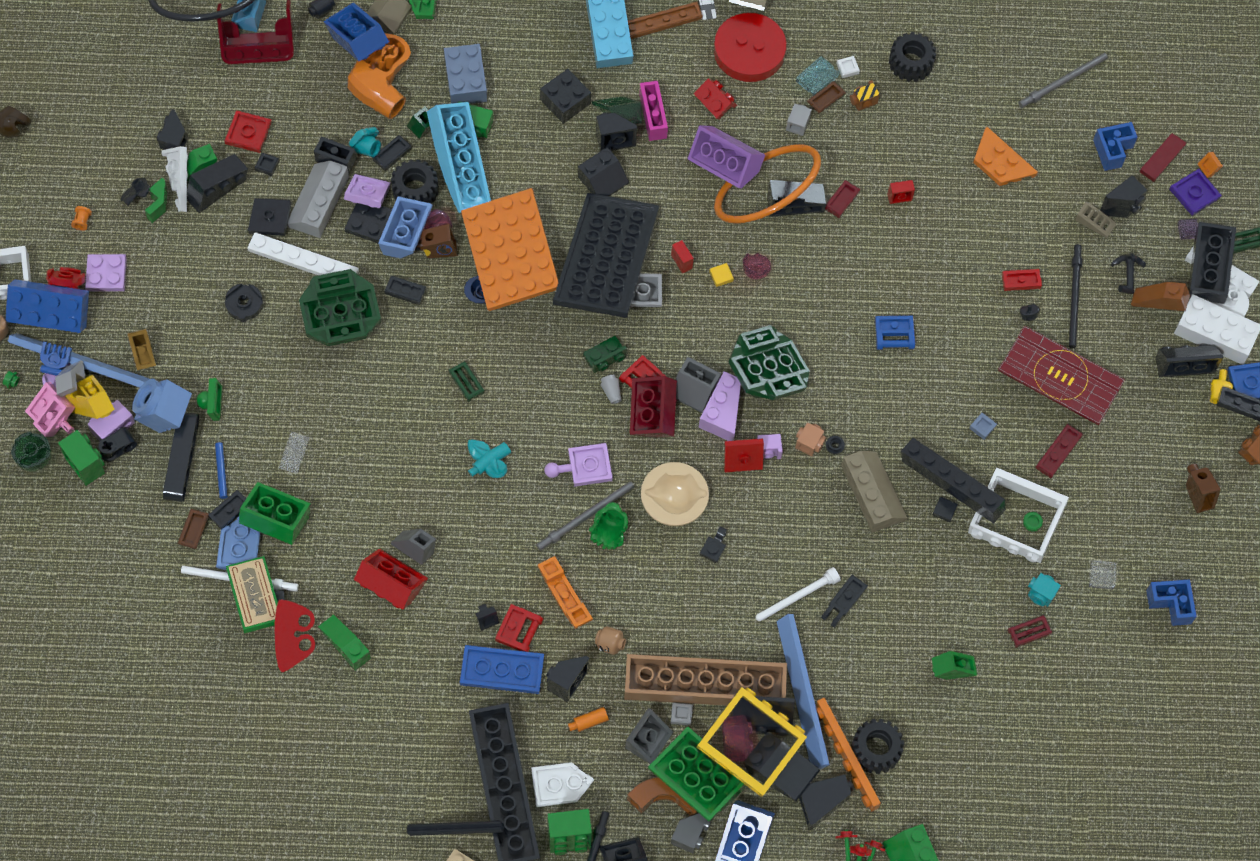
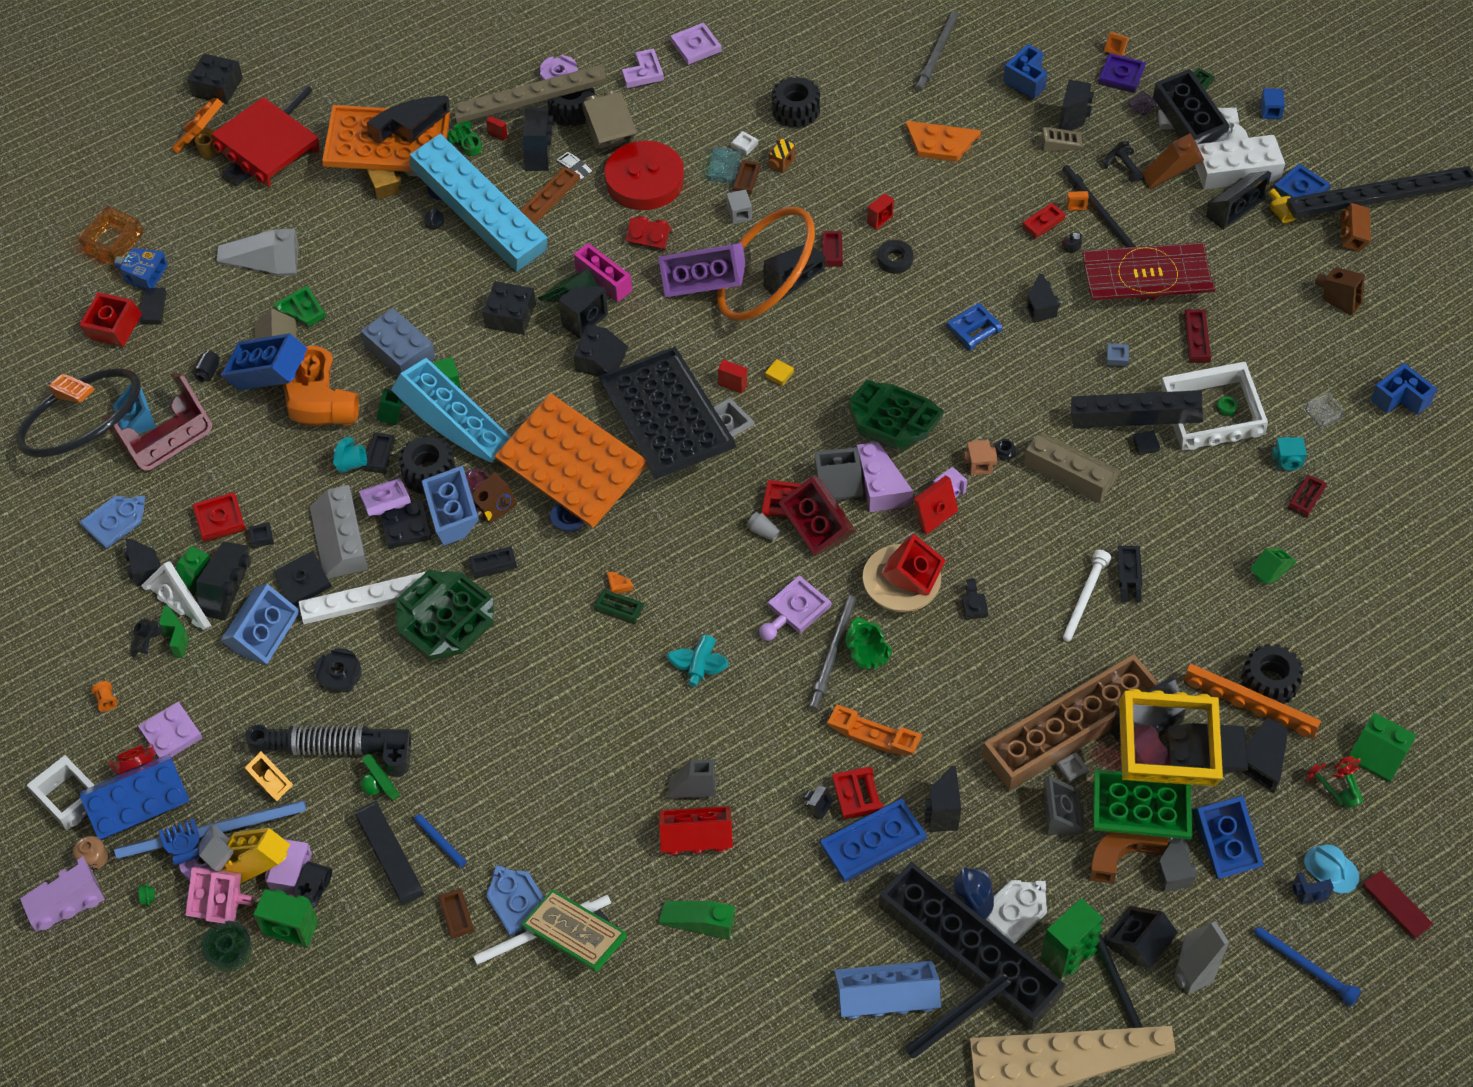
camera: 30 degrees left, 10 degrees down
(160, 405) = (332, 813): medium blue piece -> none
(179, 87) = (114, 519): none -> medium blue tile
(217, 233) = (260, 624): none -> medium blue slope
(218, 363) = (357, 740): none -> black piece
(227, 510) = (479, 871): black plate -> none
(274, 513) = (531, 841): green brick -> none
(286, 644) = (644, 956): red piece -> none
(294, 452) = (503, 775): clear slope -> none
(333, 151) = (321, 480): black brick -> none
(427, 777) = (888, 989): none -> medium blue slope
(479, 363) = (619, 583): none -> orange tile
(538, 753) = (975, 890): none -> dark blue piece
(588, 720) = (994, 830): orange cylinder -> none
(605, 354) = (731, 502): dark green bracket -> none
(610, 640) = (953, 745): medium nougat head -> none
(686, 492) = (914, 566): none -> red slope
(756, 266) = (806, 345): clear pink hair -> none
(802, 691) = (1126, 645): medium blue tile -> none
(883, 225) = (895, 266): none -> black tyre
(961, 344) = (1041, 301): none -> black slope
(1060, 280) = (1077, 201): none -> orange tile
(1162, 157) = (1071, 60): dark red tile -> none

